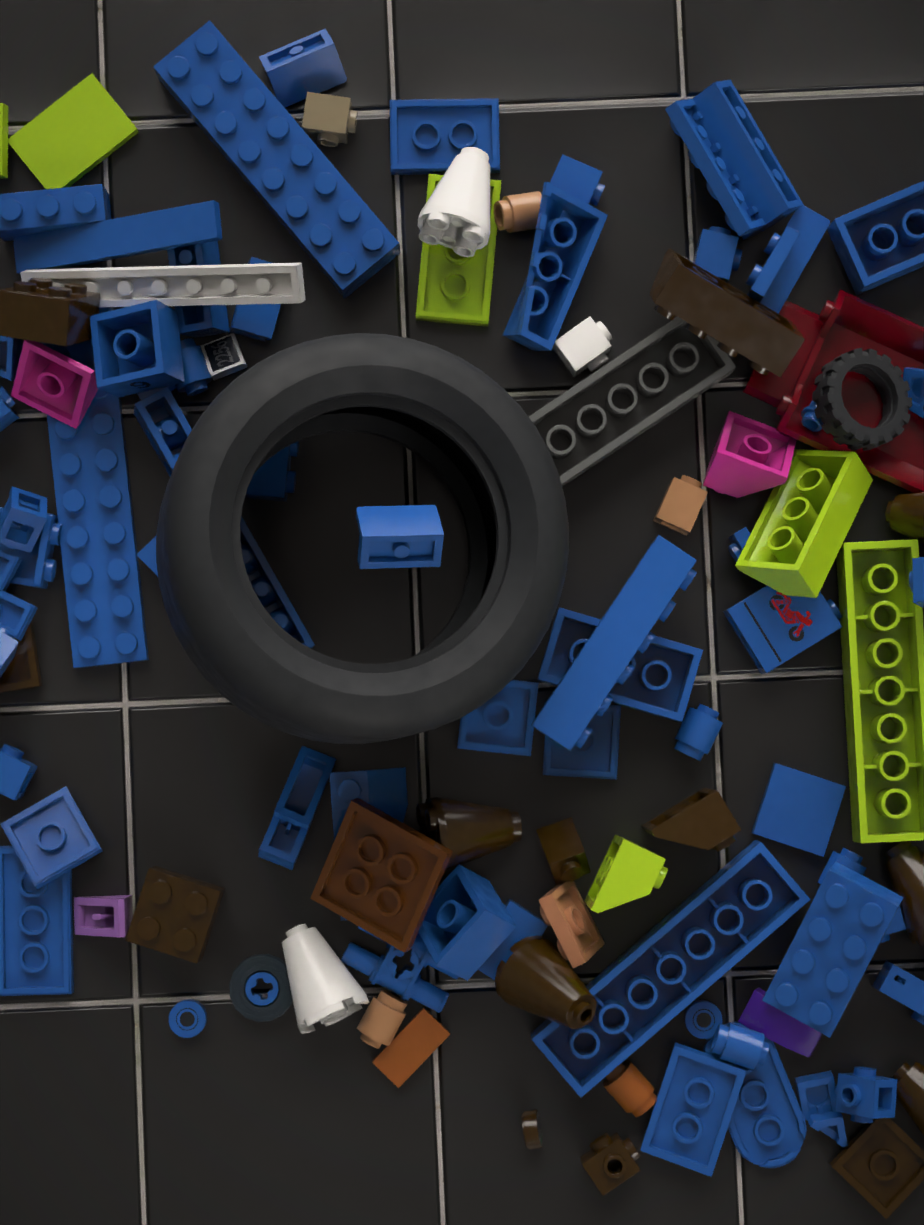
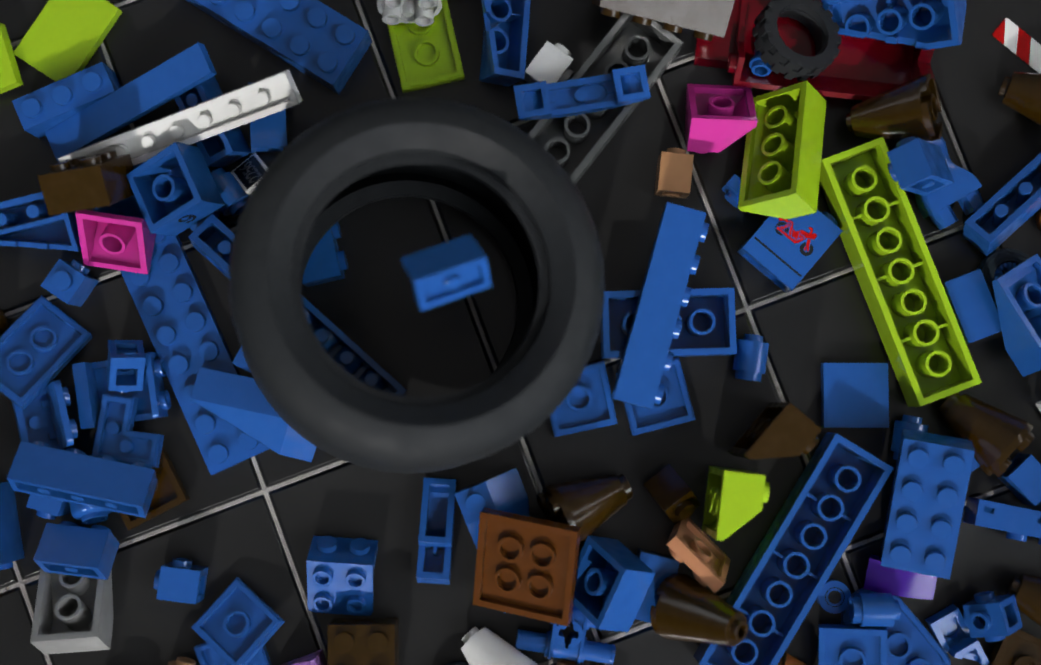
camera: 15 degrees left, 0 degrees up
(139, 609) = (245, 407): none -> blue wedge
(178, 822) = (341, 575): none -> blue bracket
(606, 389) = (582, 95): none -> blue slope

